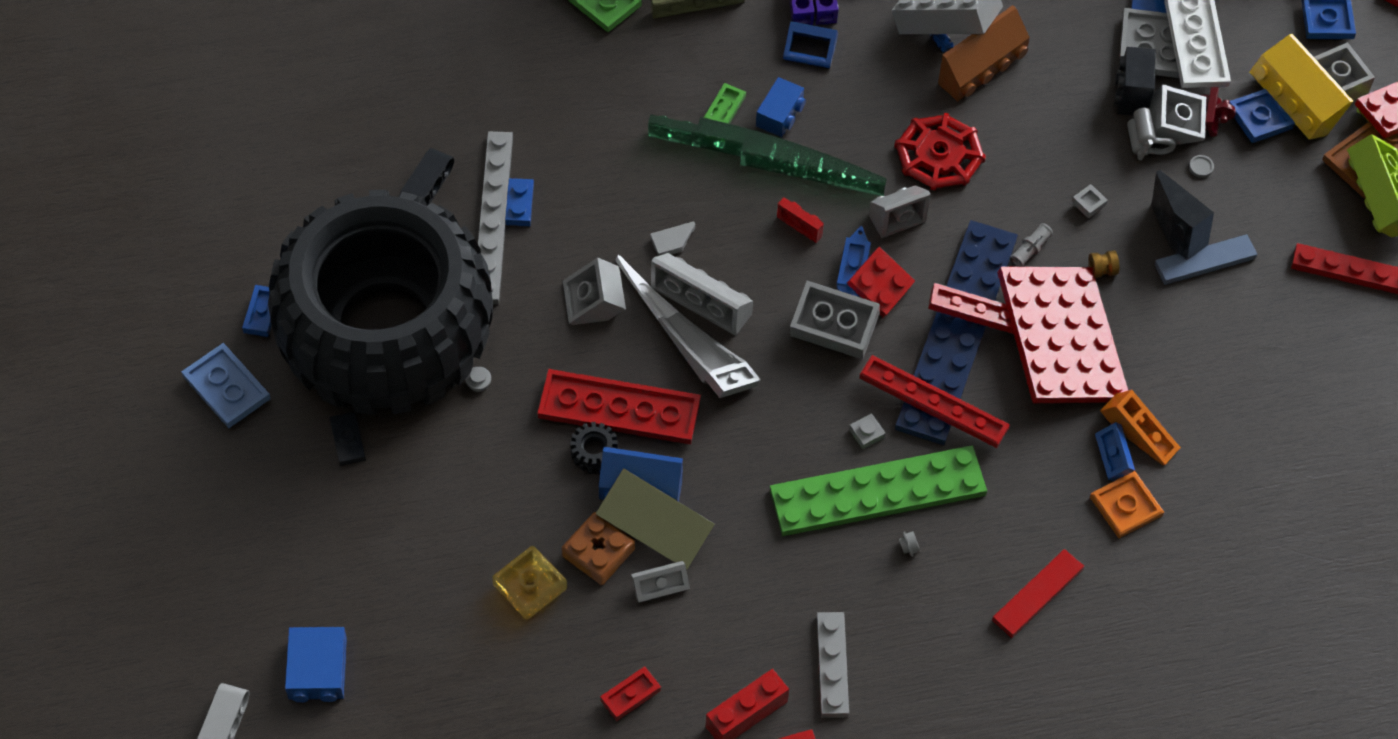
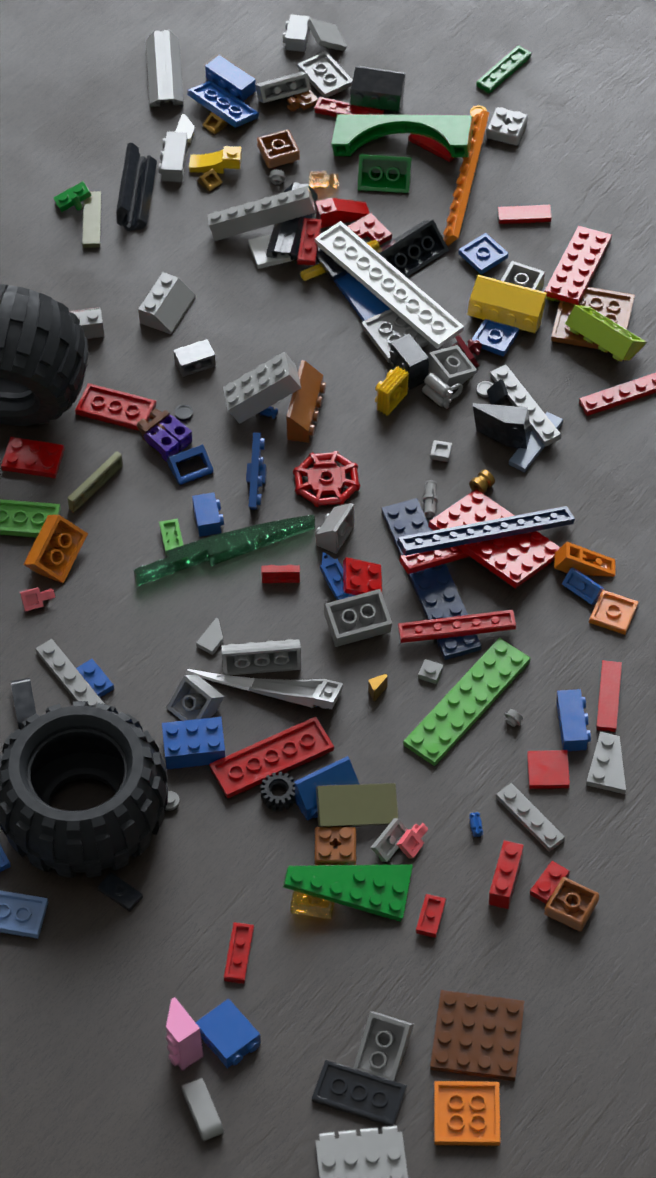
camera: 35 degrees left, 5 degrees down
(257, 630) = (182, 1037): none -> bright pink slope
(405, 587) = (238, 953): none -> red tile
(531, 79) = (34, 598): none -> coral plate
(552, 335) = (193, 742): none -> blue brick
(586, 613) = (363, 887): none -> green wing
(595, 42) = (55, 548): none -> orange slope
(680, 599) = (411, 840): none -> coral plate
(767, 630) = (476, 824): none -> blue piece
(794, 408) = (377, 686): none -> pearl gold slope
(866, 95) = (256, 471): none -> blue plate
(898, 626) = (548, 769): none -> red tile
(968, 667) = (607, 765): none -> light grey wing
(971, 591) = (572, 720): none -> brick
(1052, 318) = (485, 530): none -> plate
(1089, 100) = (391, 390): none -> yellow brick
(1207, 178) = (497, 393): none -> black slope
(1227, 212) = (521, 398): none -> plate

